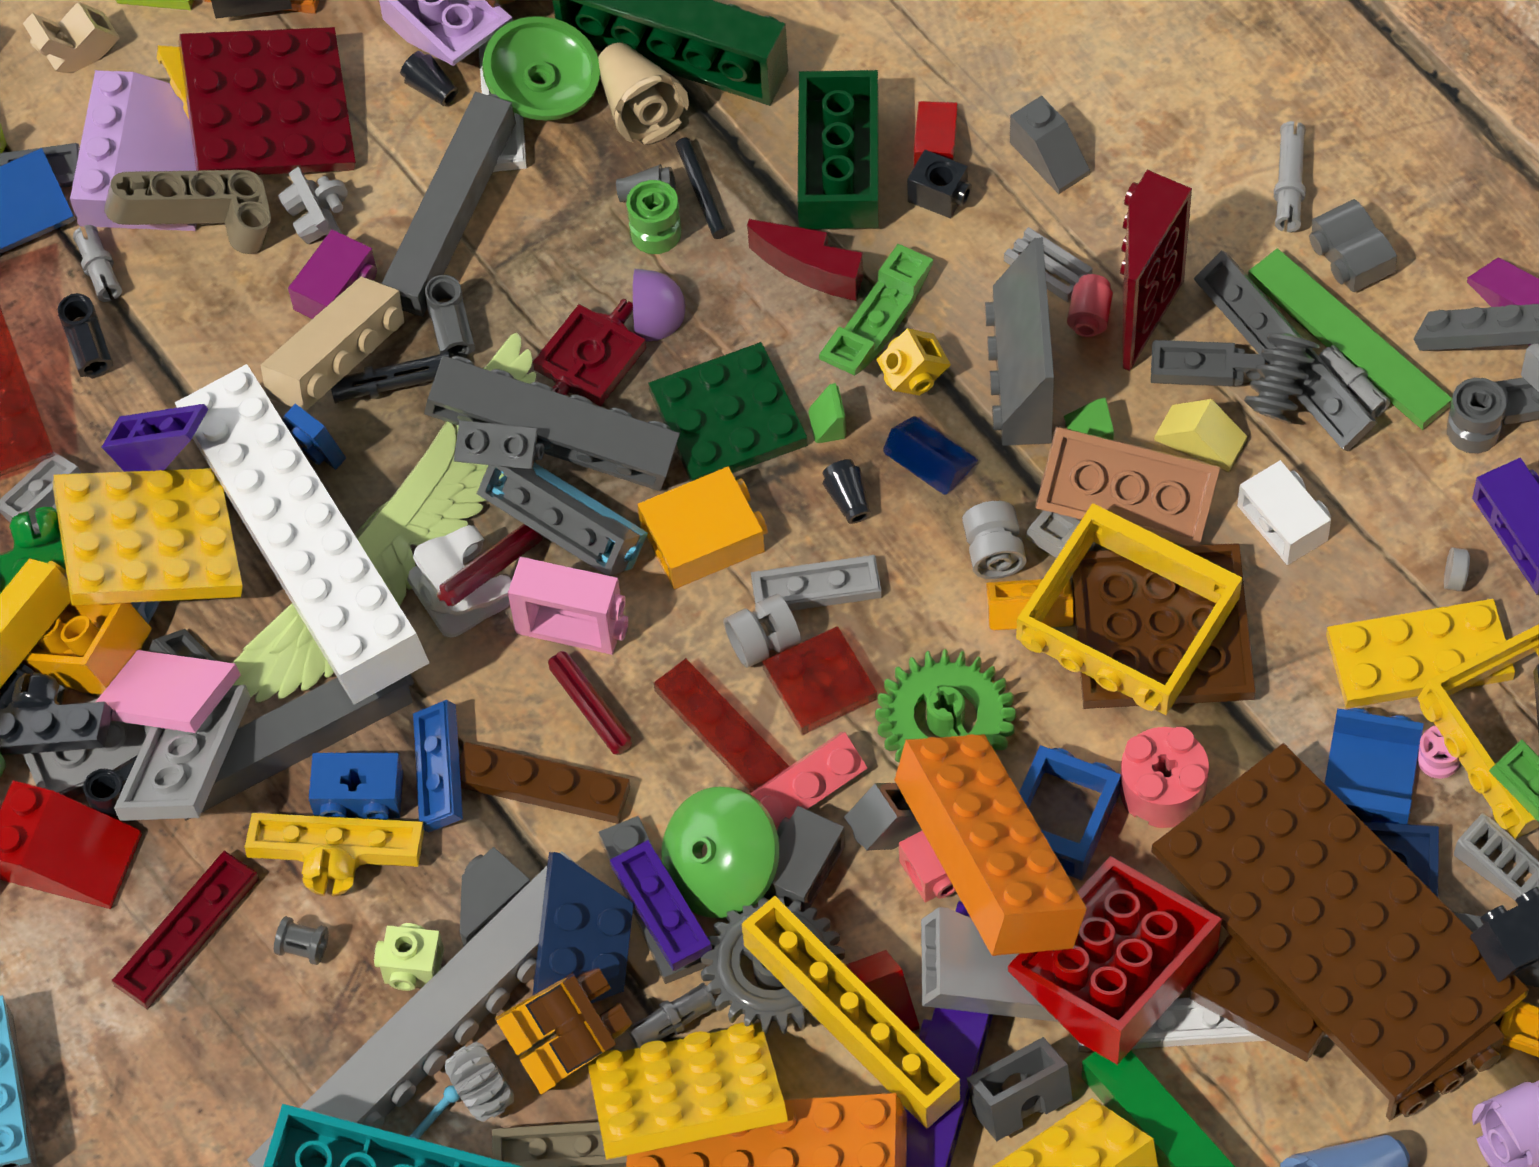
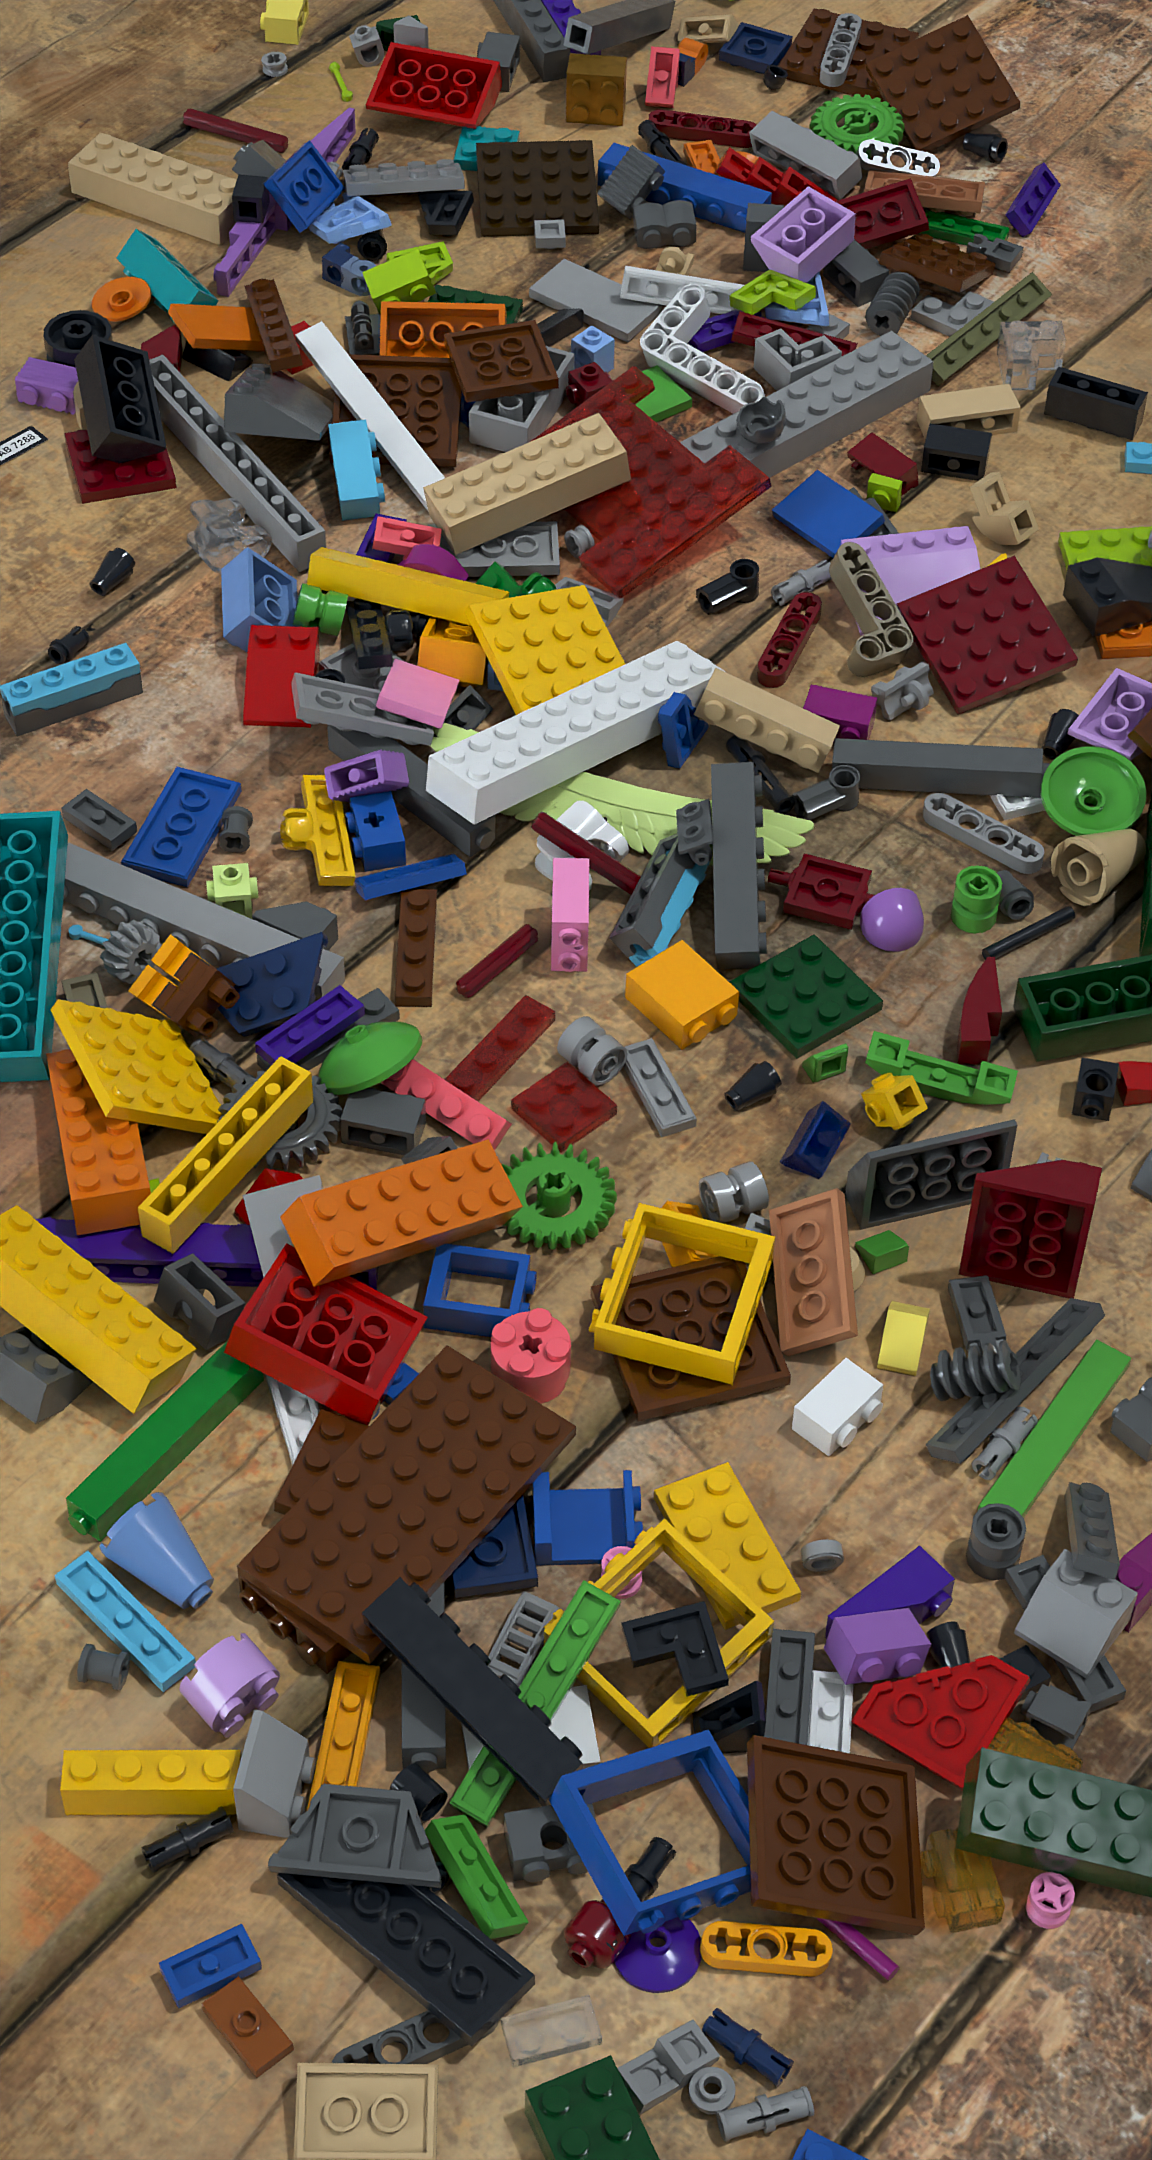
camera: 70 degrees right, 10 degrees down
(152, 438) = (636, 635): dark purple slope -> none
(180, 303) = (785, 638): none -> dark red beam
(185, 929) = (223, 762): dark red tile -> none
(231, 1093) = (99, 819): none -> dark grey plate
(266, 1004) = (181, 826): none -> blue tile
(290, 771) = (366, 775): none -> medium lavender brick
(550, 194) = (946, 815): none -> light grey beam

